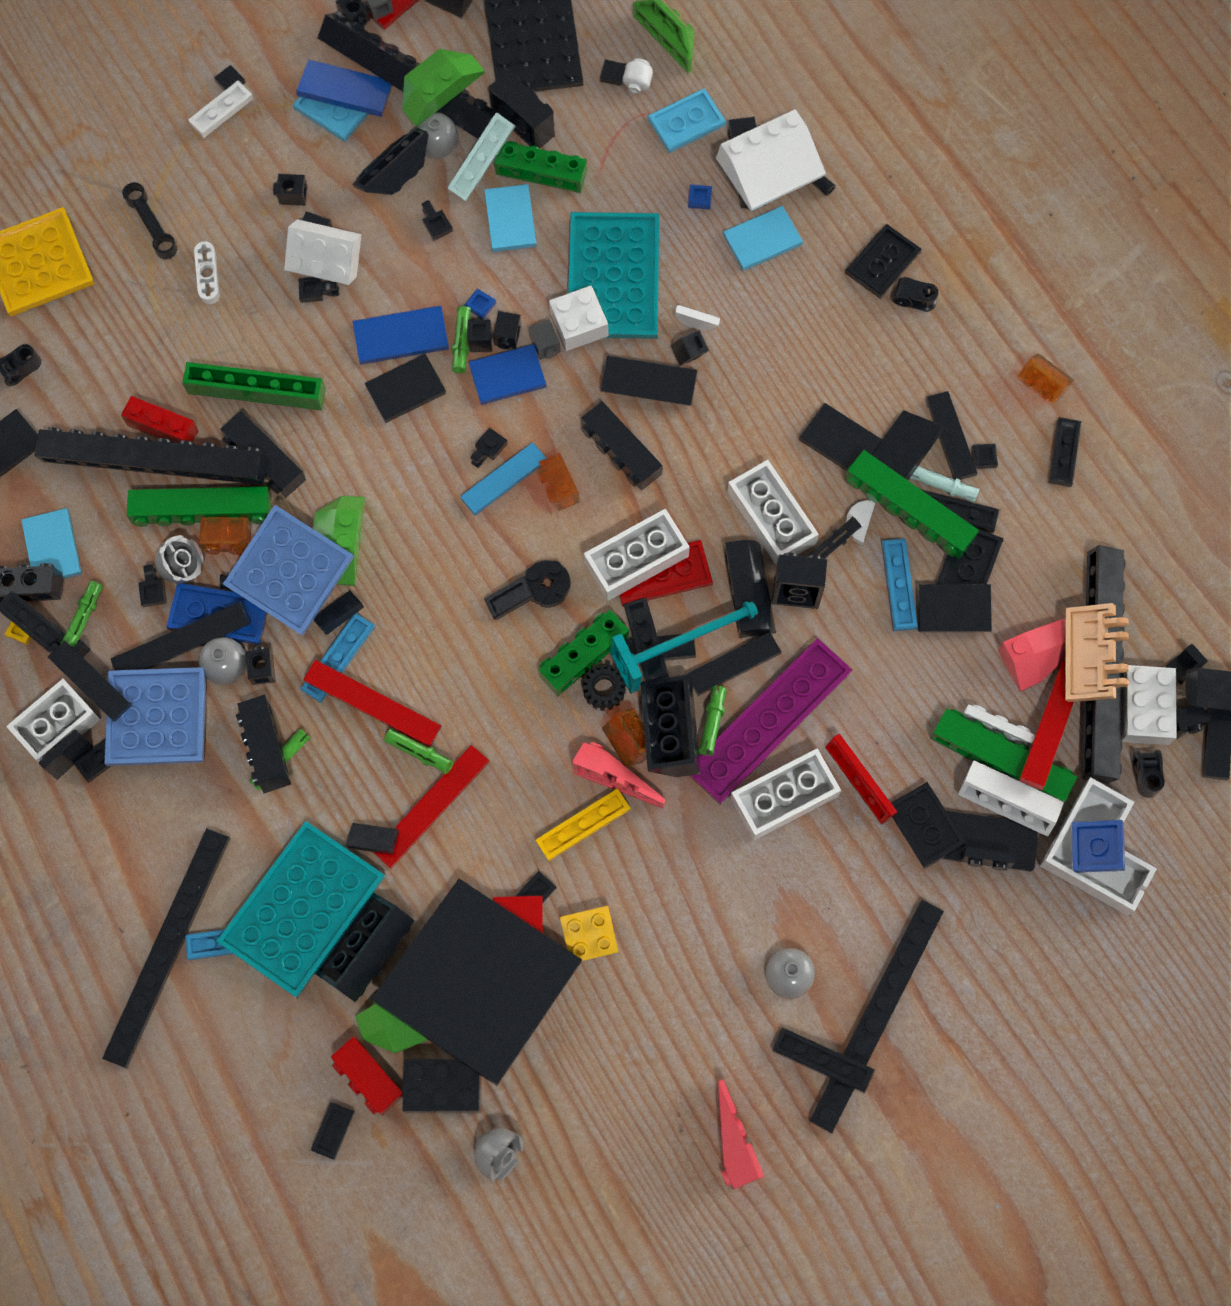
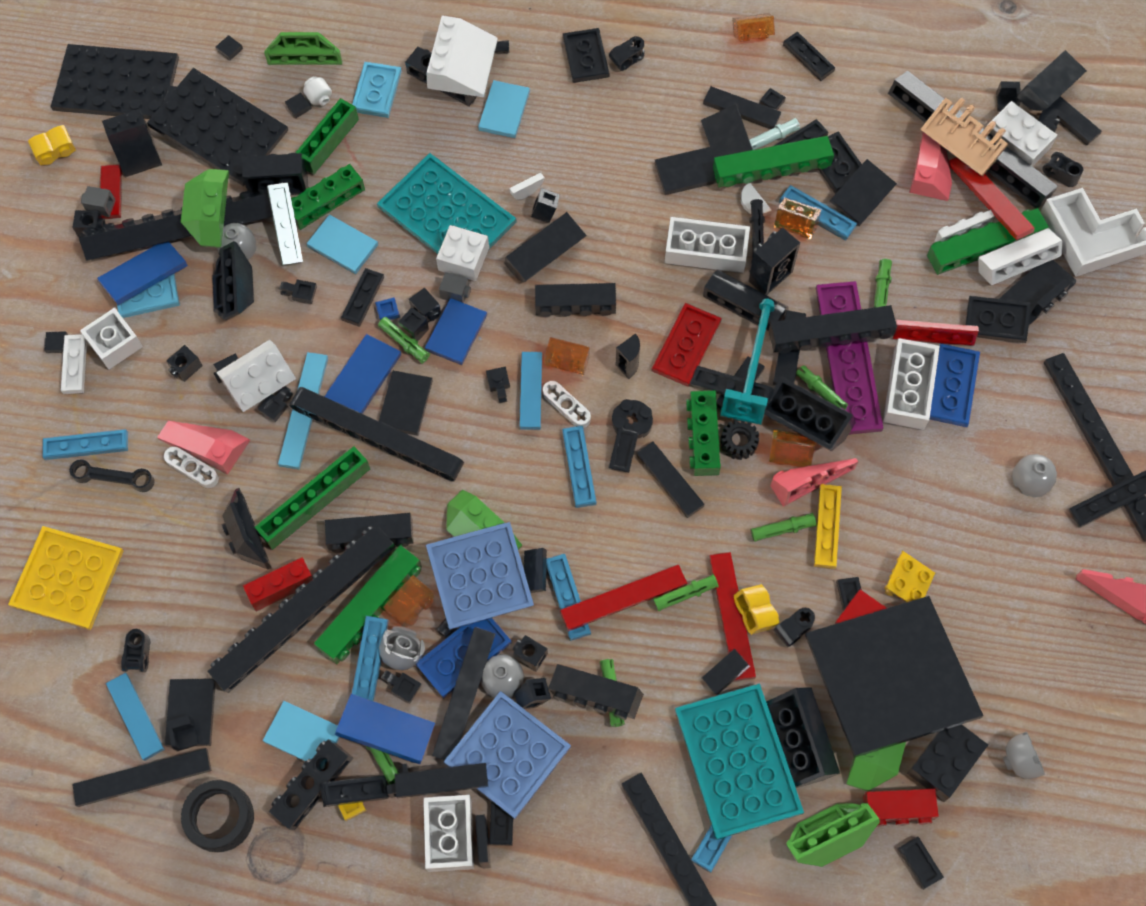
camera: 50 degrees left, 5 degrees down
(101, 604) = (385, 729): none -> blue tile
(145, 547) = (369, 658): none -> dark azure tile
(160, 178) = (85, 444): none -> dark azure tile
(187, 346) = (241, 529): none -> black wedge
(223, 695) = (532, 693): none -> black brick
(237, 268) = (208, 444): none -> coral wedge
(263, 116) = (111, 338): none -> white brick
(292, 1033) = (832, 833): none -> bright green wedge
(330, 315) = (299, 424): none -> medium azure tile
(353, 389) = (376, 434): none -> black beam
(450, 821) = (756, 609): none -> yellow brick
(458, 865) = (792, 628): none -> black piece
(465, 574) = (579, 466): none -> dark azure tile
(474, 275) = (362, 297): none -> black tile
(507, 533) = (552, 399): none -> white beam
(517, 658) = (670, 479): none -> black tile
(555, 791) = (792, 524): none -> bright green pin
(598, 119) = (328, 135): none -> green brick
(600, 529) = (628, 356): none -> black brick
(636, 554) = (666, 345): white brick -> none
(700, 197) = (439, 122): blue tile -> none
(778, 684) = (832, 329): none -> black brick
(823, 834) = (954, 385): none -> blue tile
(871, 570) = (797, 218): none -> clear orange brick
(875, 694) = (883, 280): none -> bright green pin
(1098, 846) = (1098, 227): blue plate -> none

